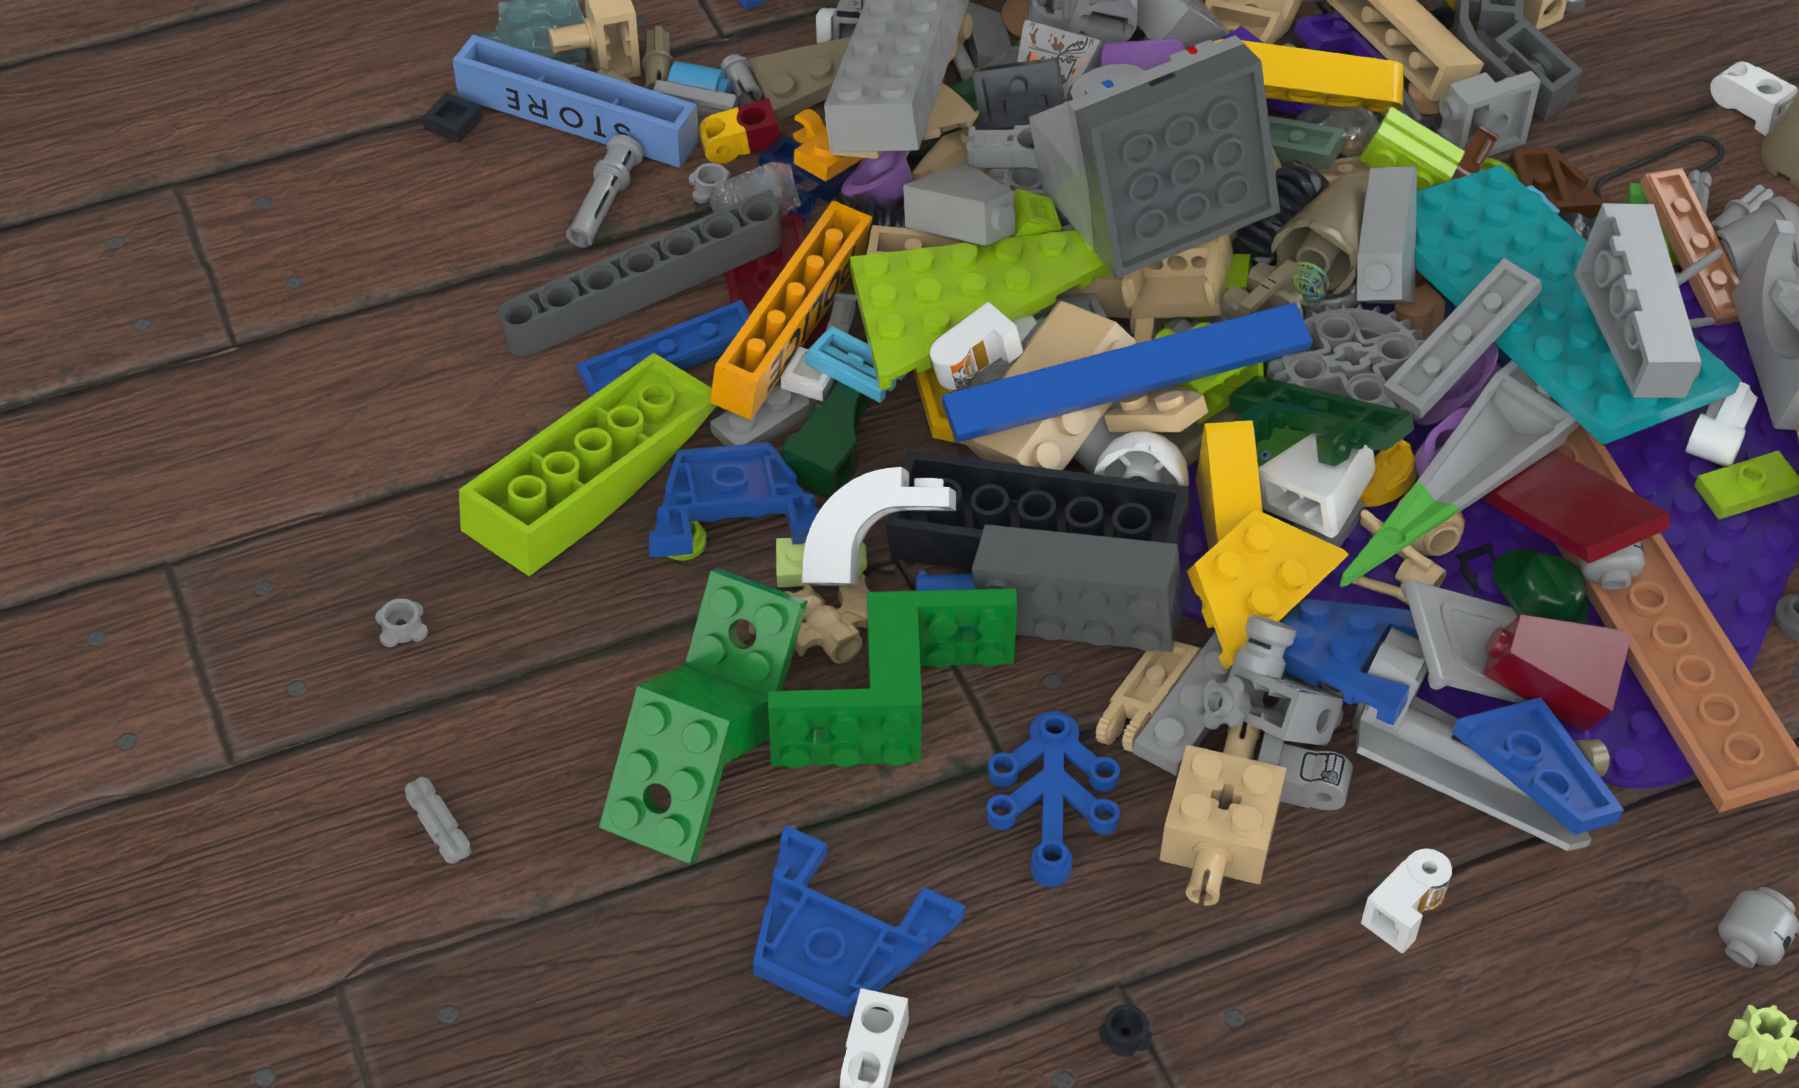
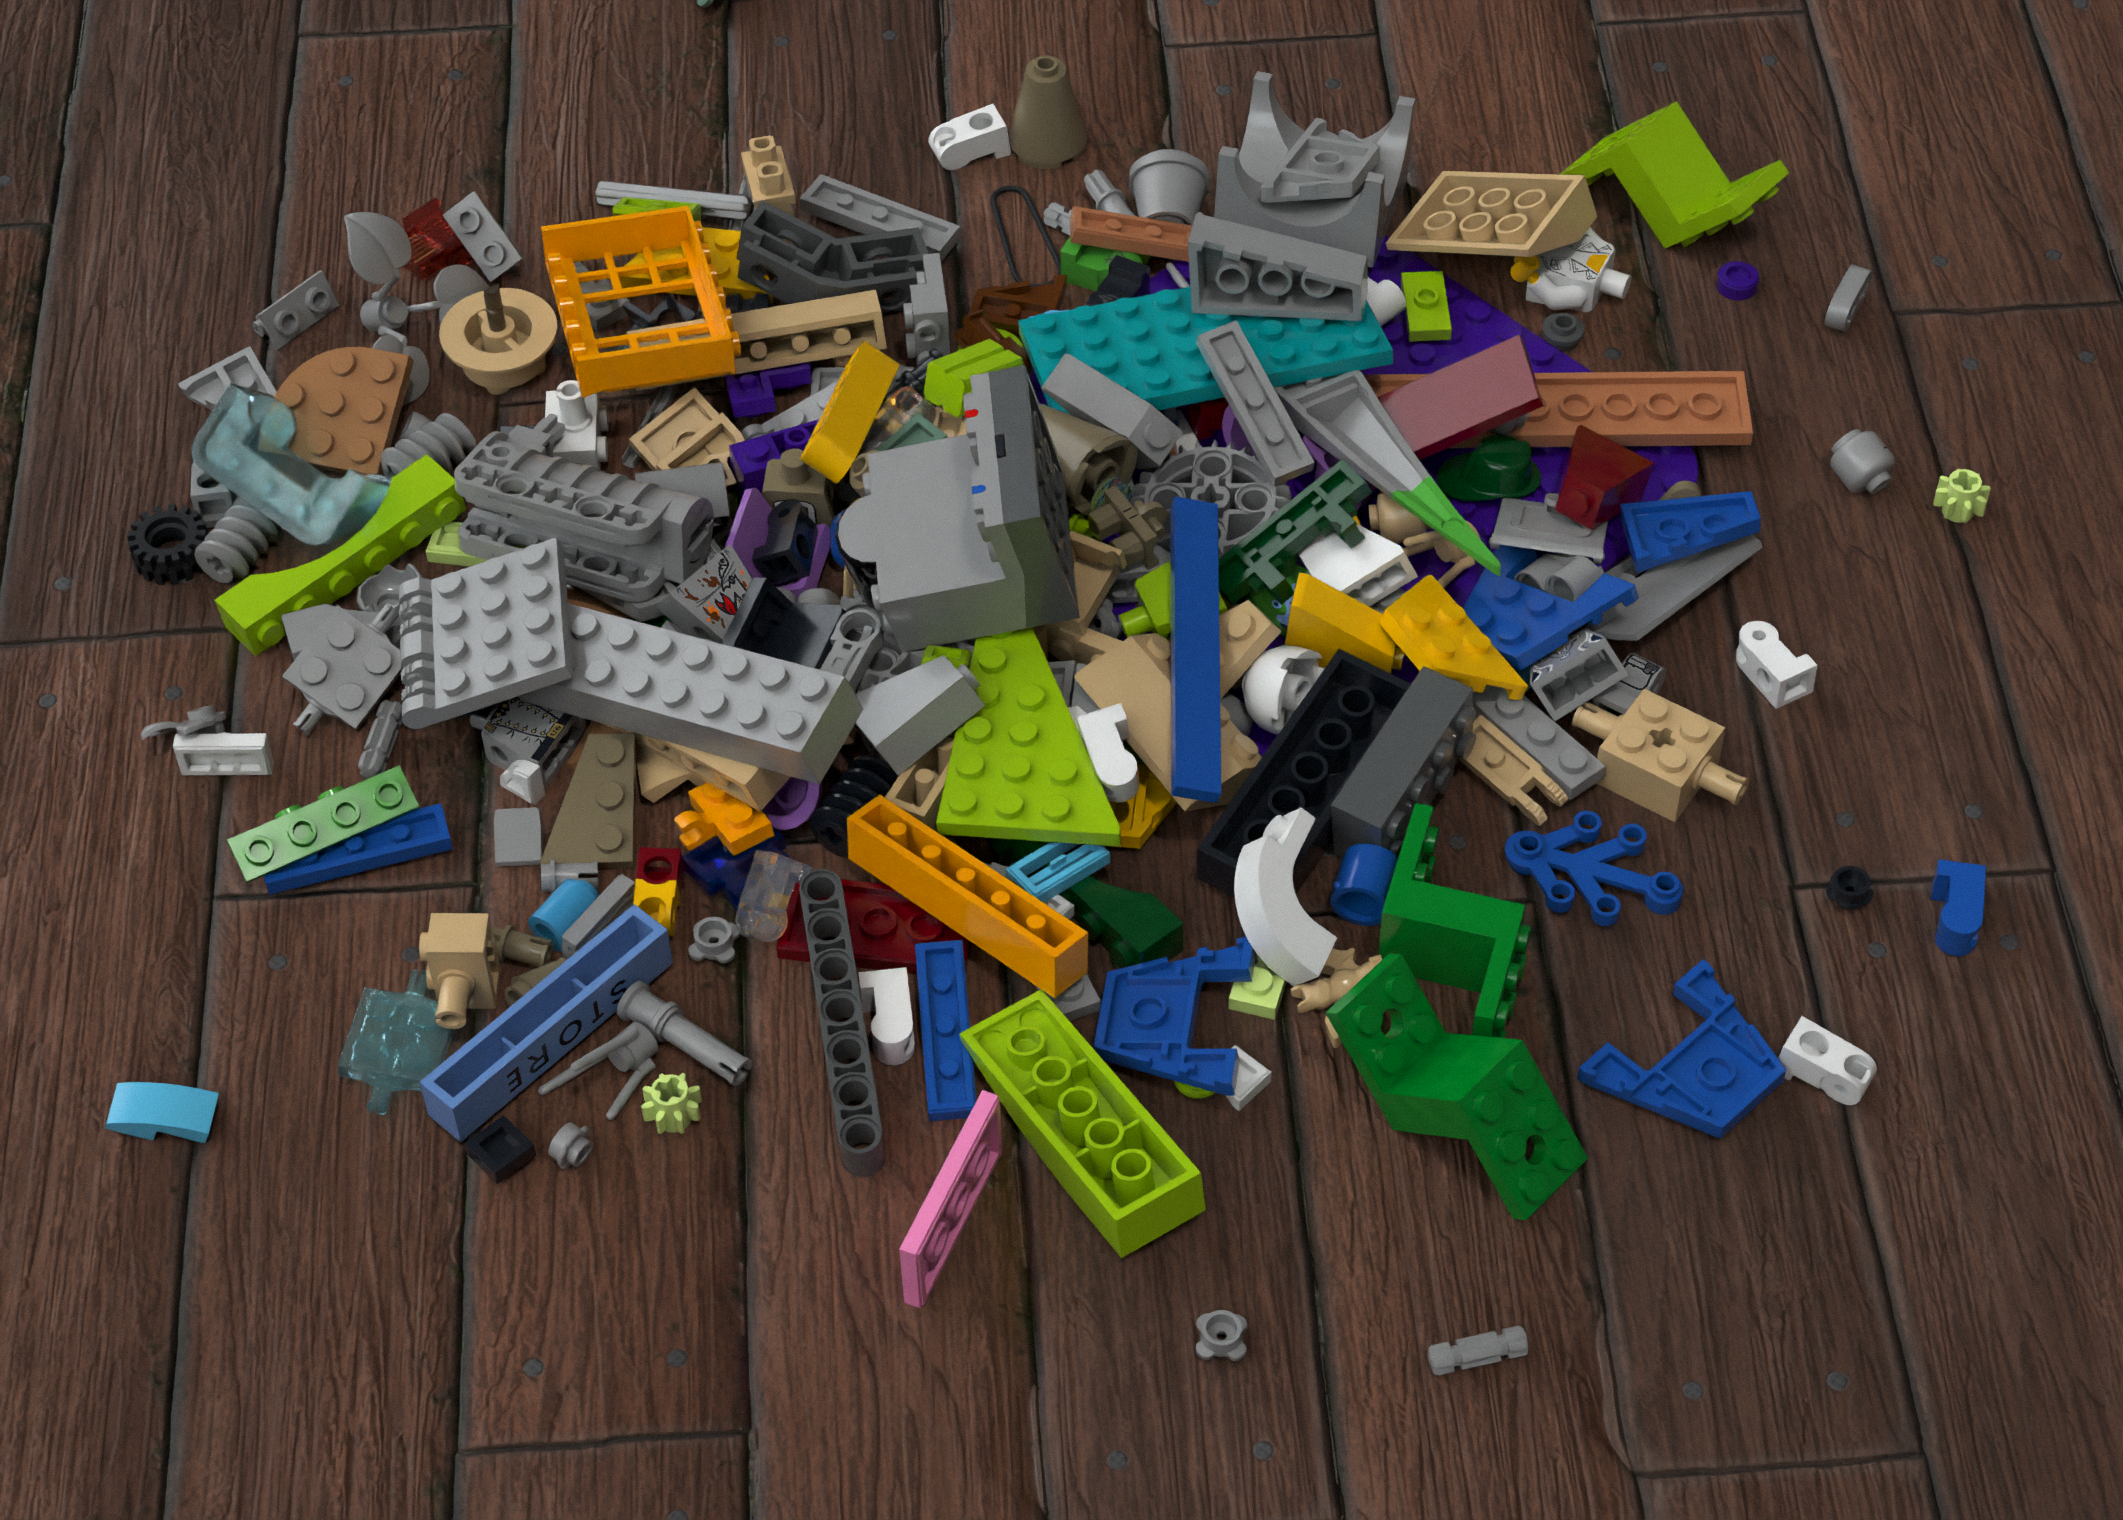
camera: 70 degrees left, 0 degrees up
(468, 386) = (951, 1200): none -> bright pink tile
(469, 156) = (571, 1146): none -> light grey plate
(527, 200) = (671, 1103): none -> yellowish green gear
(573, 159) = (626, 1051): none -> light grey plant
(667, 306) = (892, 1026): none -> white leg
(692, 574) = (1250, 1080): none -> white tile
(770, 36) = (518, 836): none -> light grey slope
(1225, 703) = (1567, 693): light grey plate -> none
(1262, 657) = (1533, 652): light grey wheel -> none
(1608, 64) = (875, 214): none -> light grey plate

